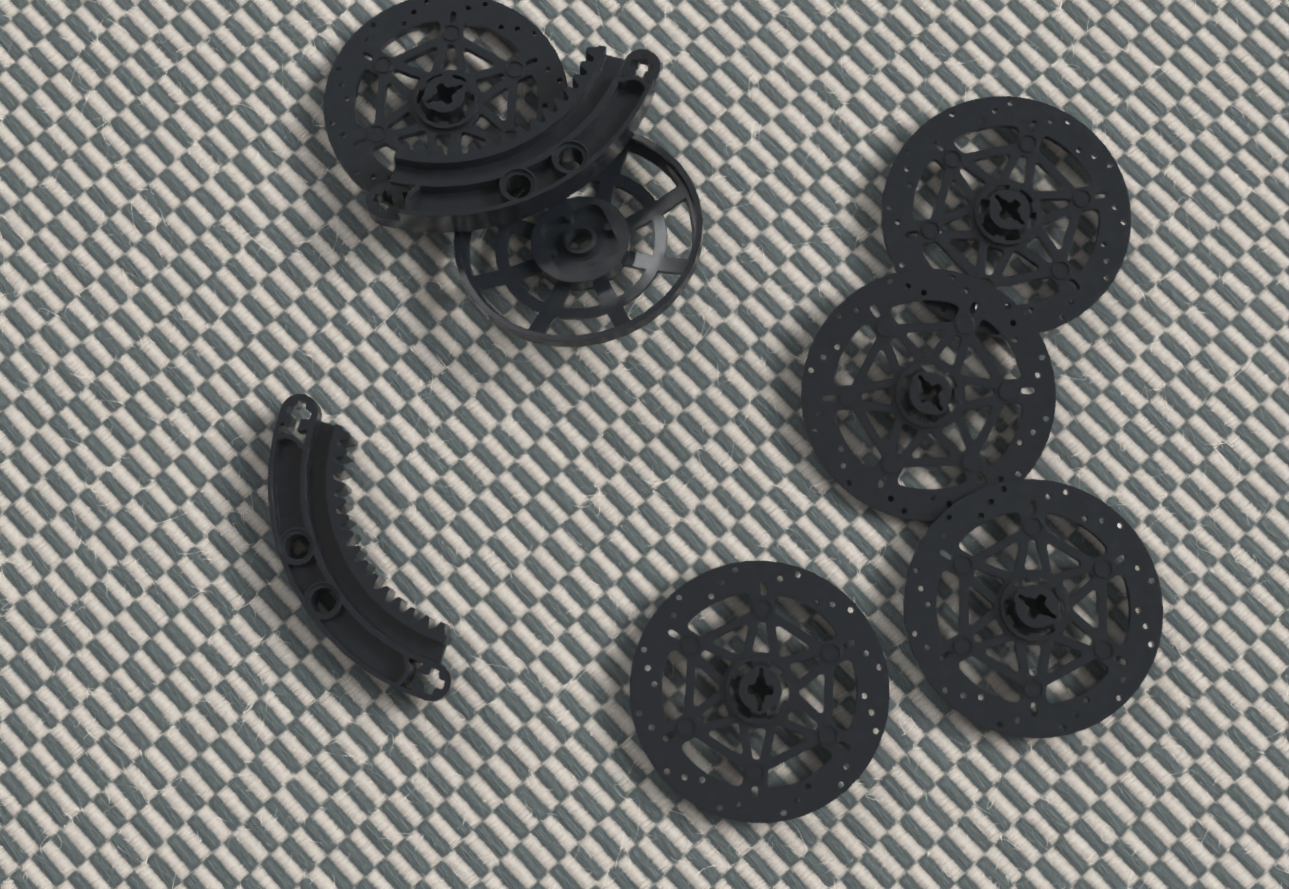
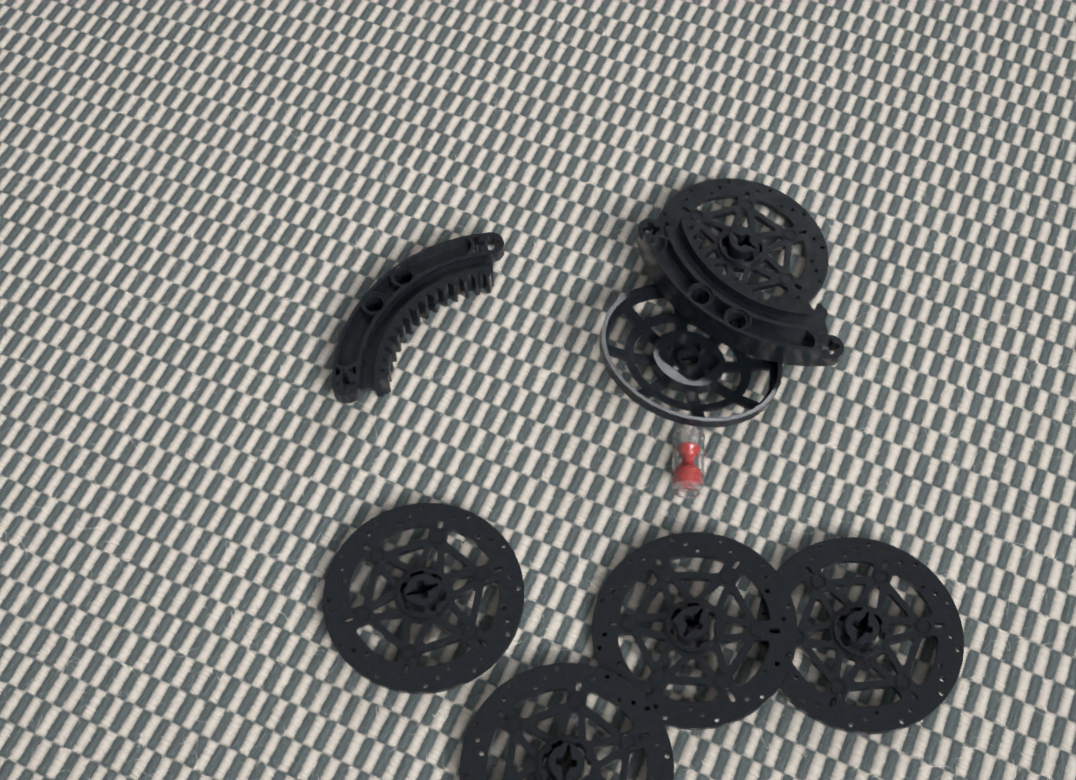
camera: 65 degrees right, 20 degrees down
(733, 314) = (687, 477): none -> clear piece

